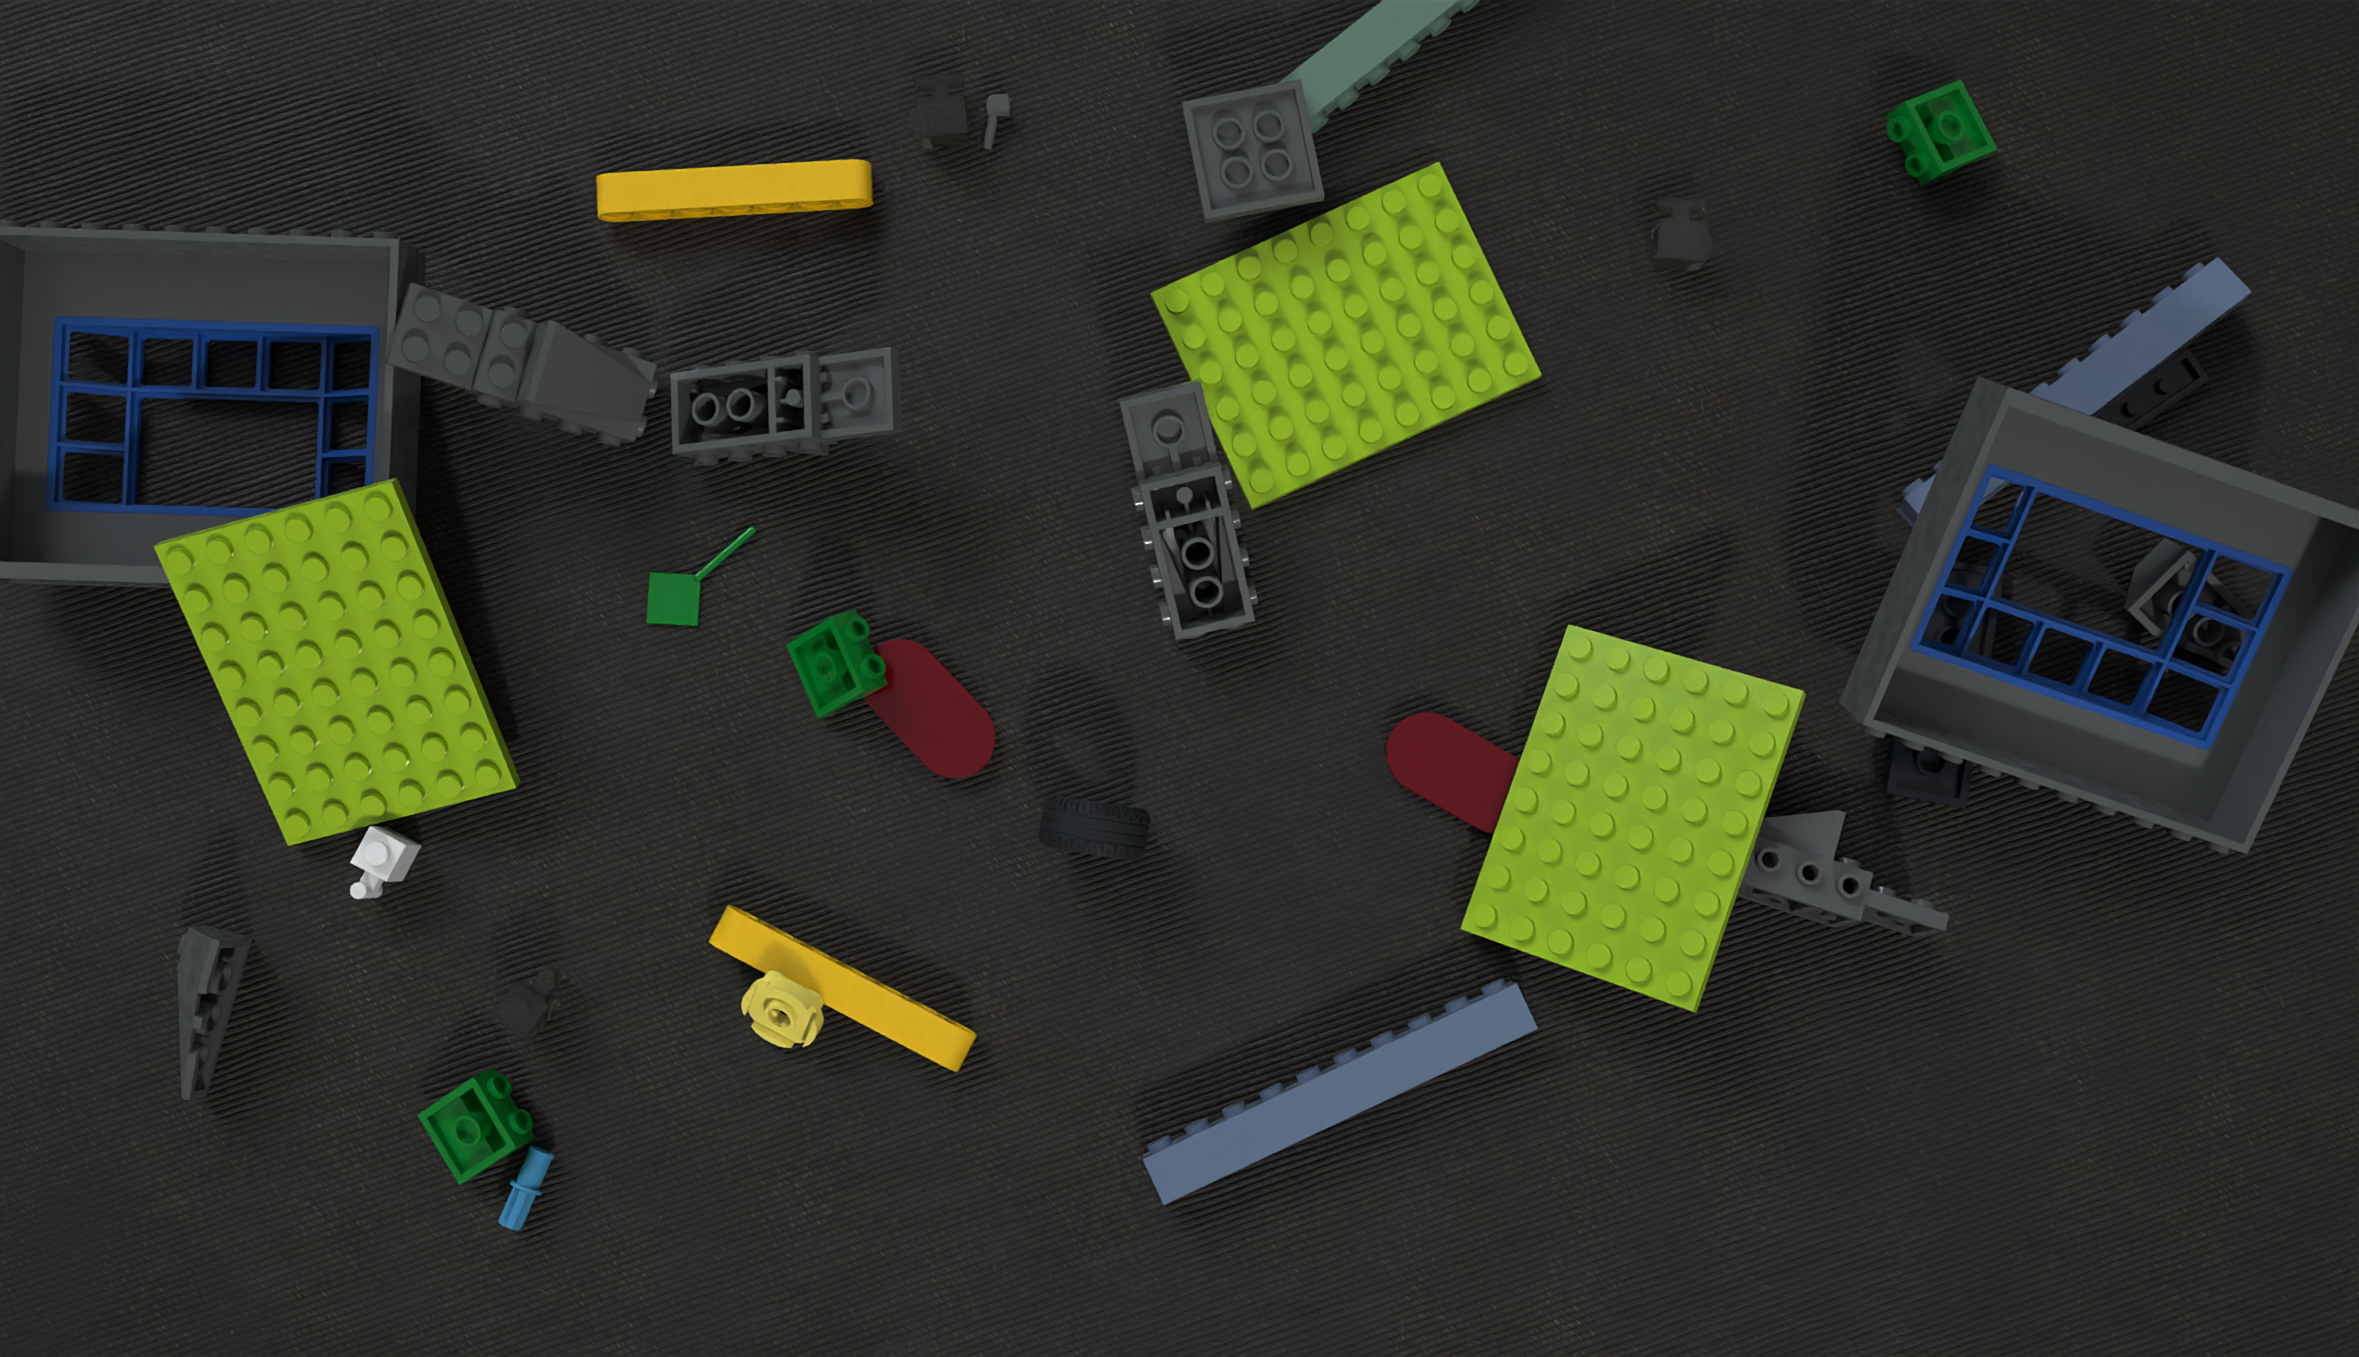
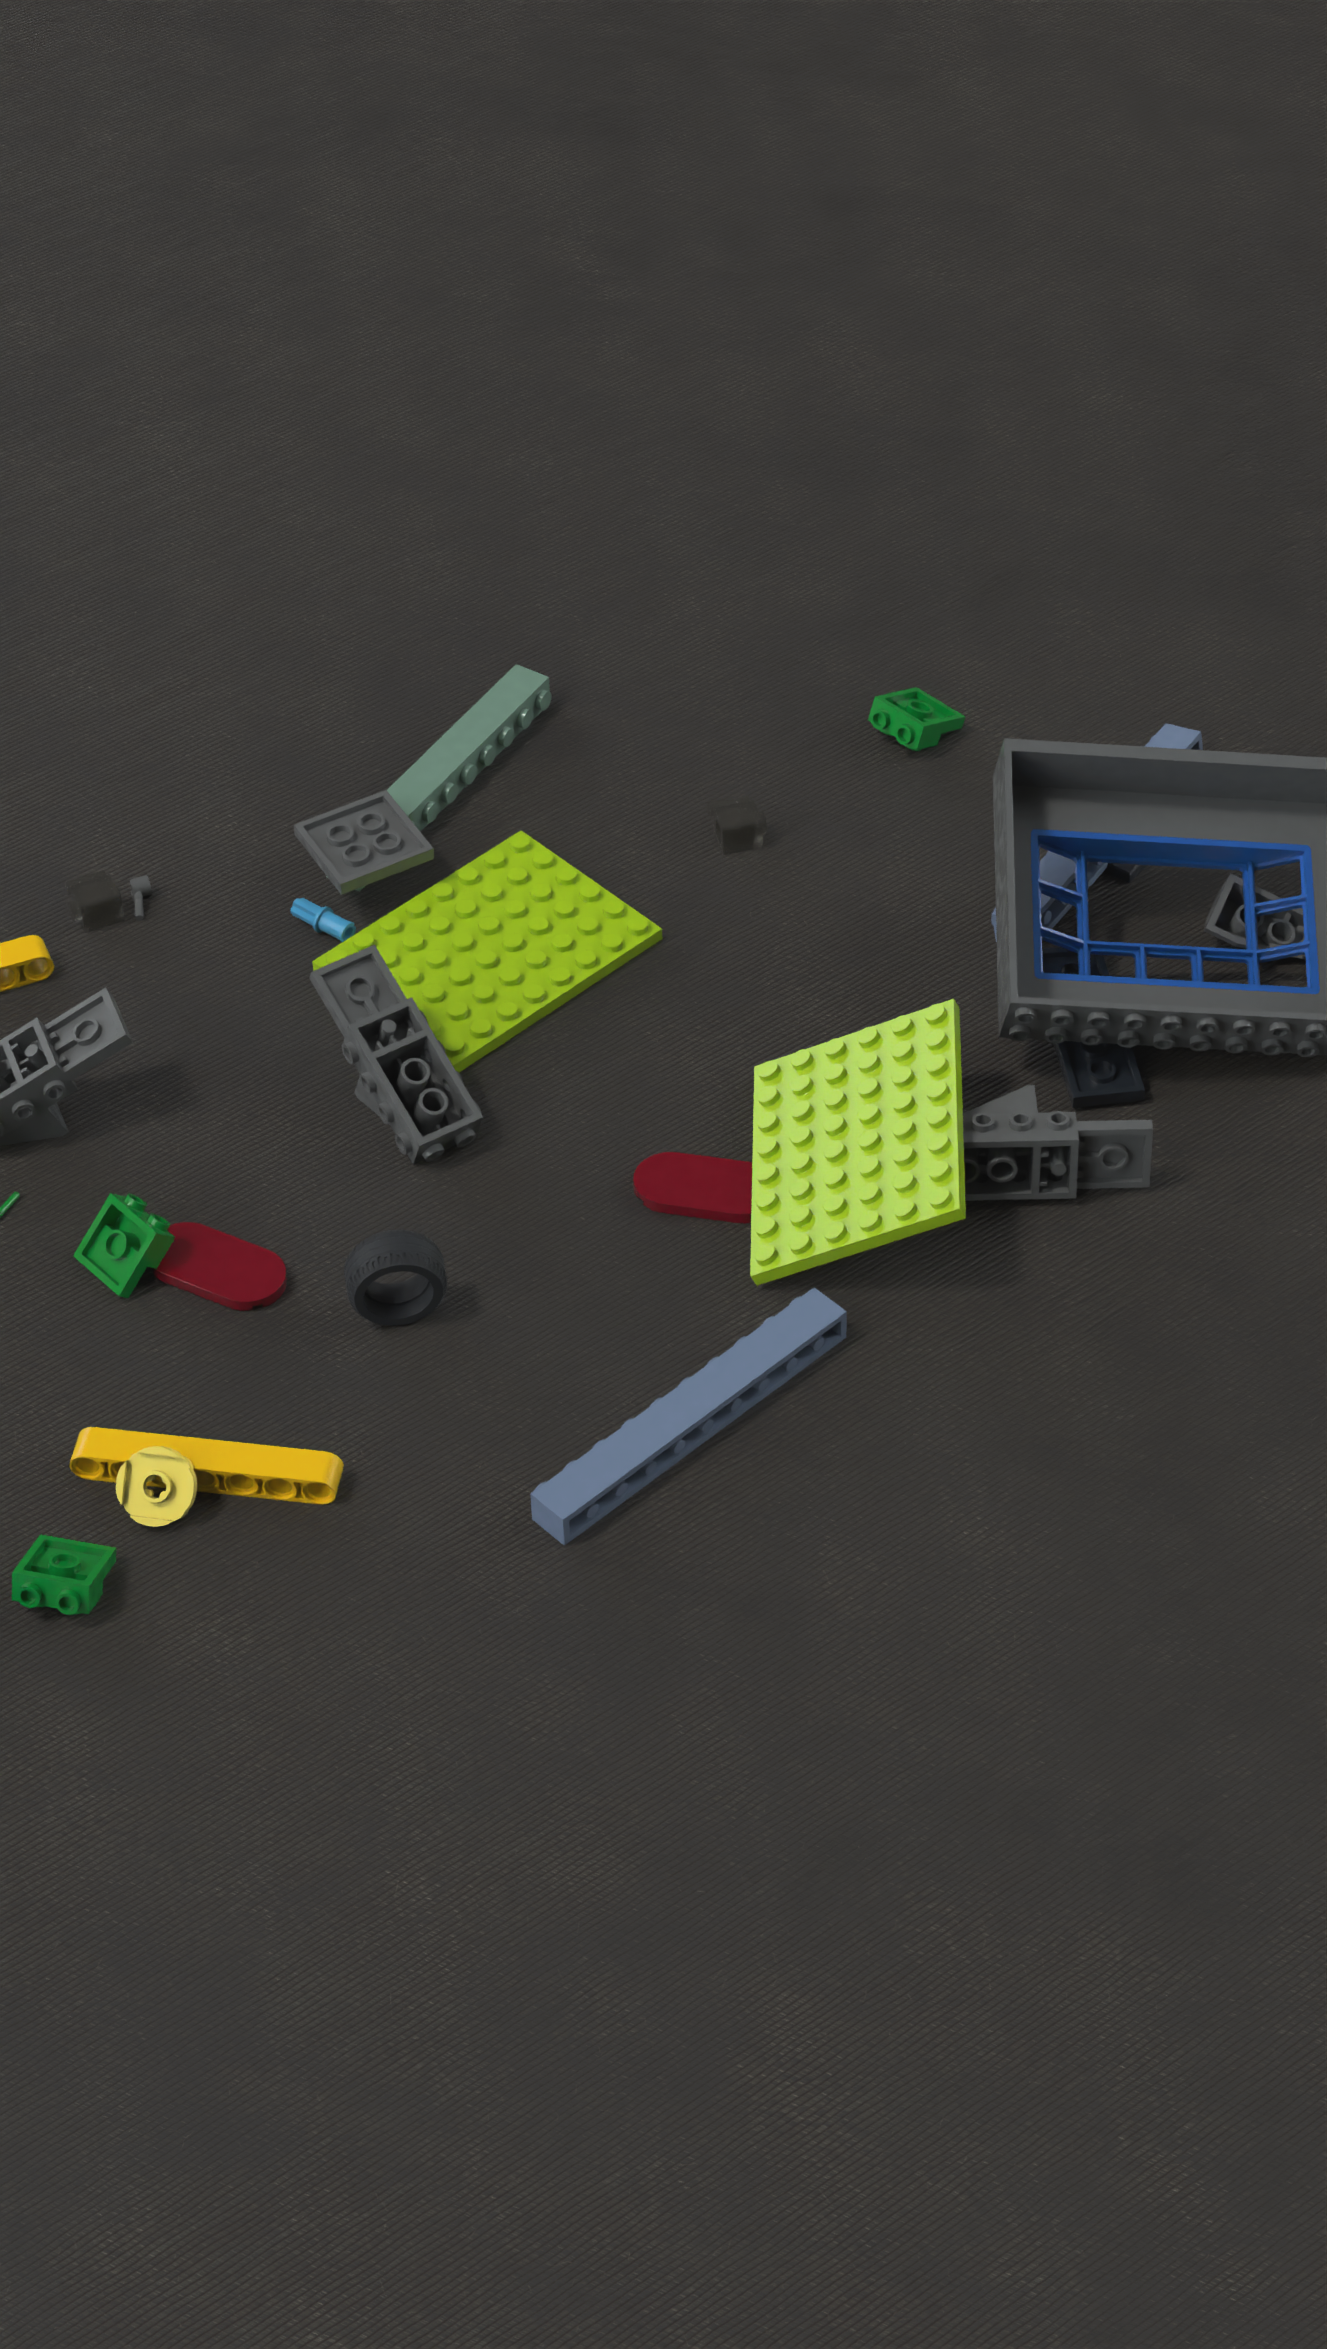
camera: 15 degrees left, 40 degrees down
(666, 1083) = (62, 1574): none -> green plate
(1180, 227) = (323, 919): none -> dark azure axle

